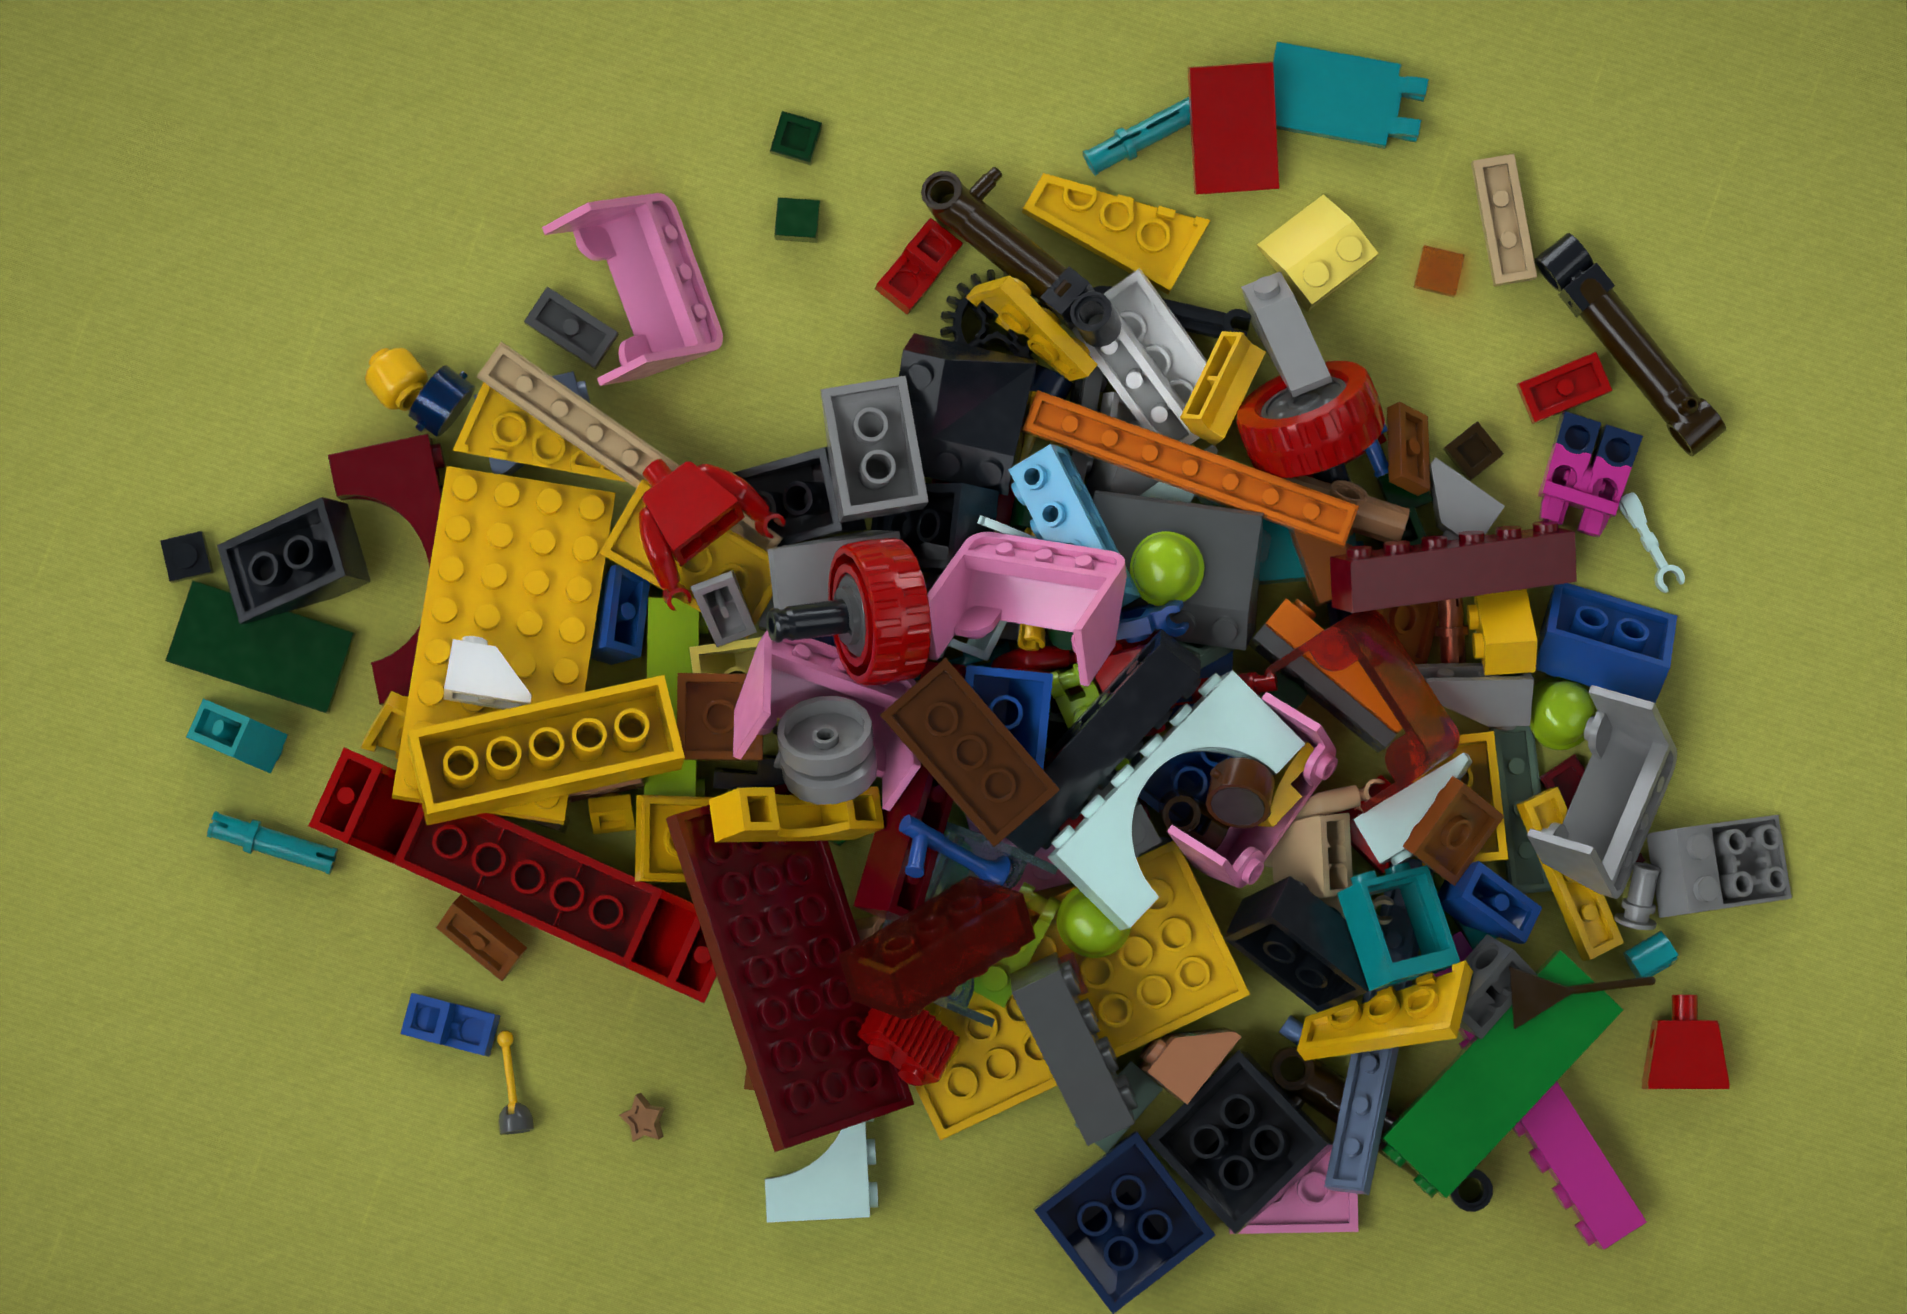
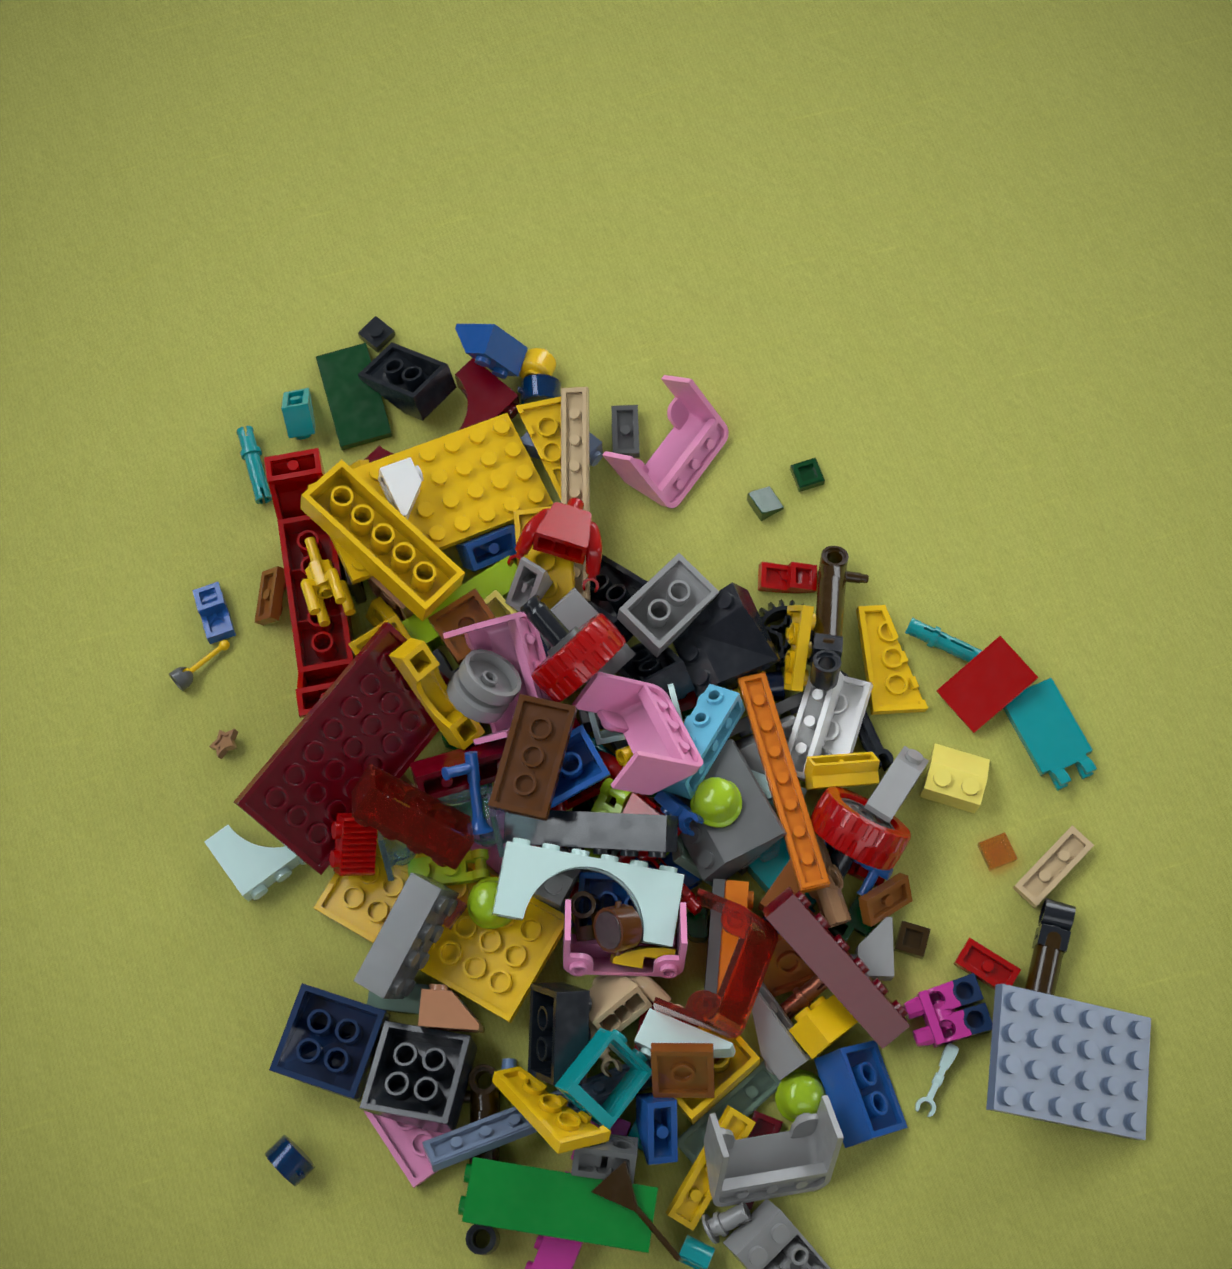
camera: 65 degrees right, 15 degrees down
(341, 426) = (492, 348): none -> blue slope
(536, 860) = (322, 584): none -> yellow plant
(1741, 382) = (1069, 1063): none -> sand blue plate

